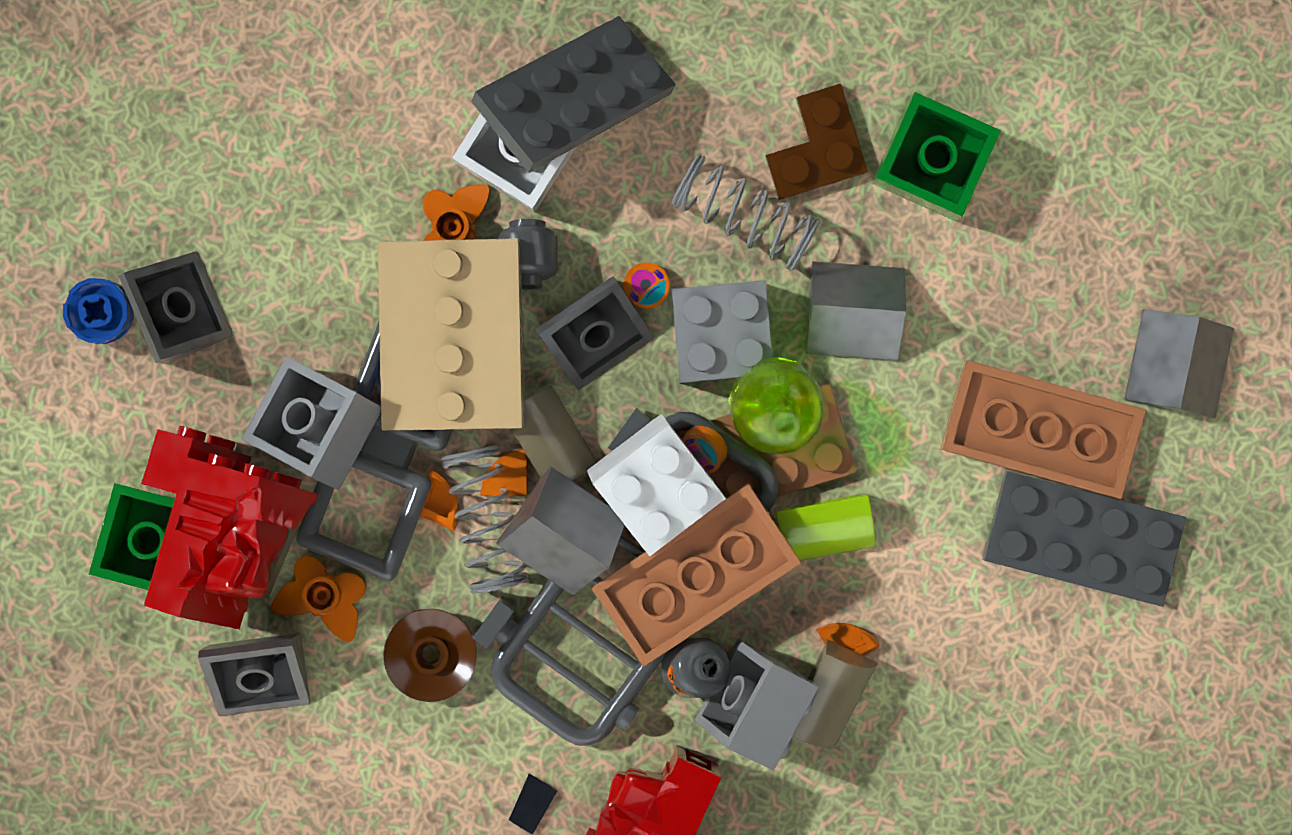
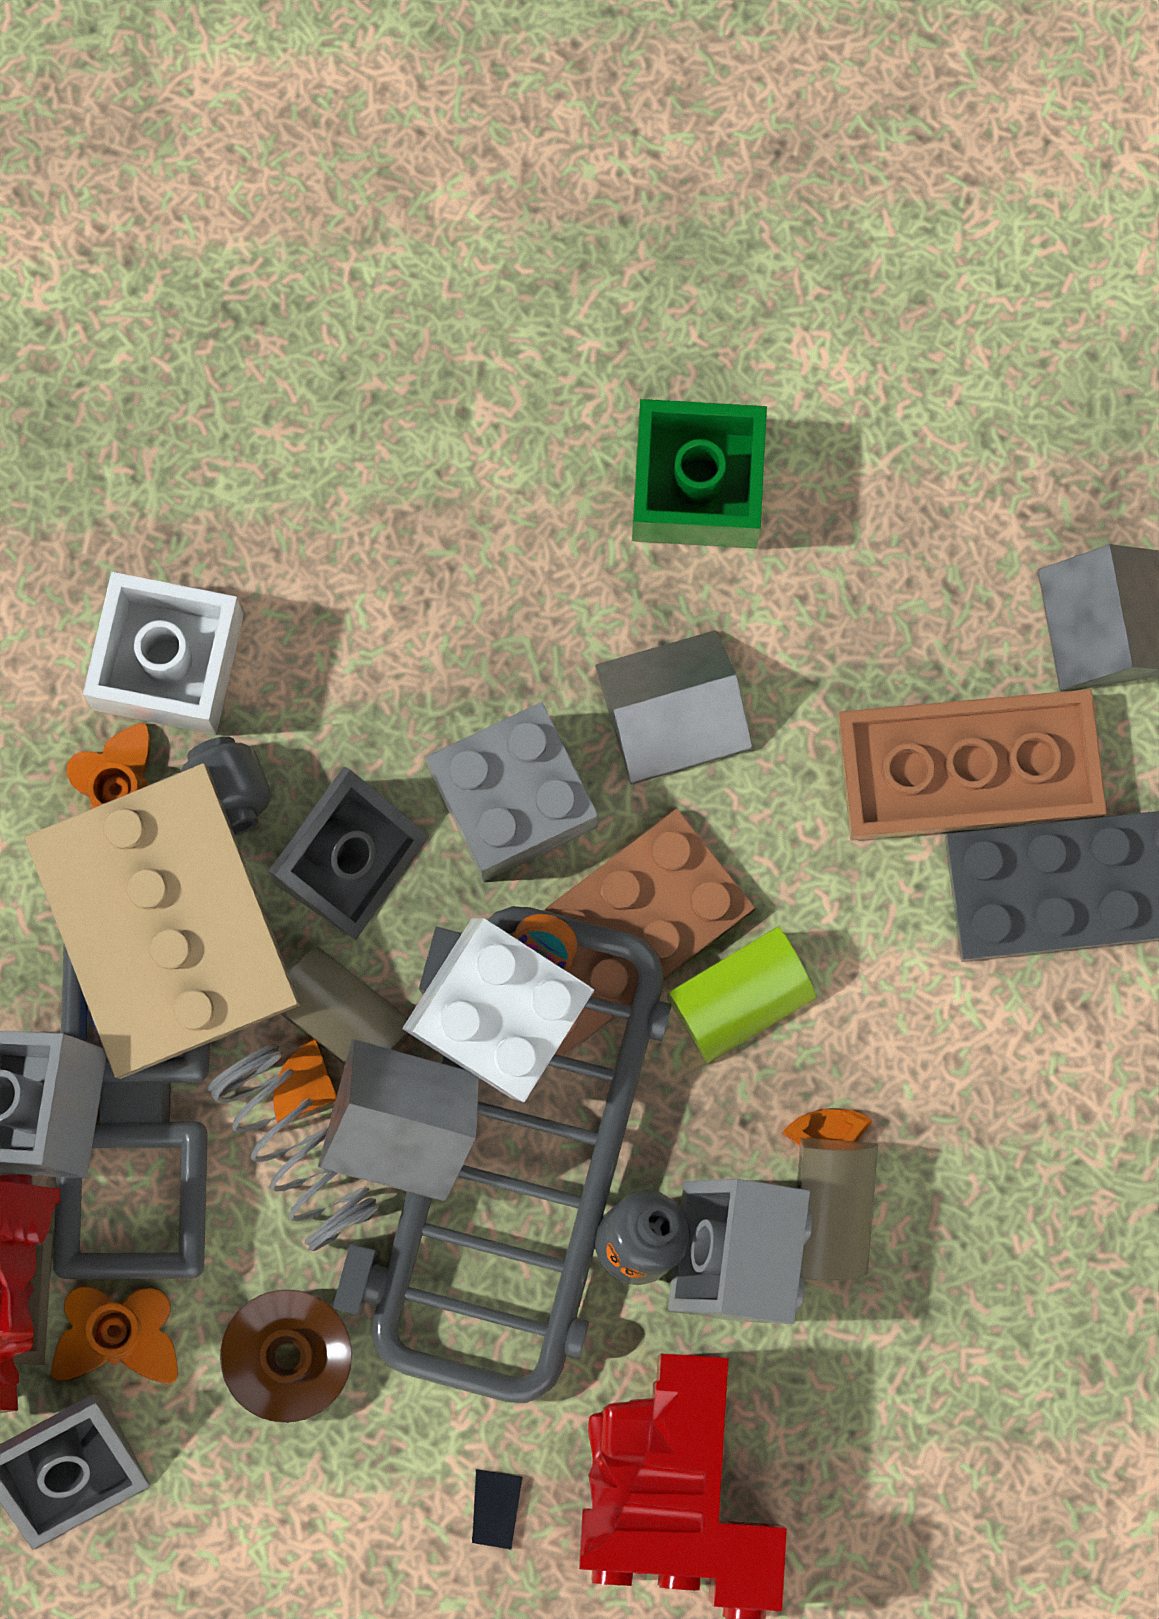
camera: 20 degrees left, 10 degrees down
(440, 504) = (228, 1152): orange tile -> none
(573, 93) = (208, 559): dark grey plate -> none
(646, 285) = (395, 771): tile -> none
(683, 191) = (399, 608): light grey piece -> none
(696, 575) = (595, 1110): nougat plate -> none
(777, 406) = (597, 840): clear neon green cylinder -> none
(832, 147) = (565, 521): reddish brown plate -> none

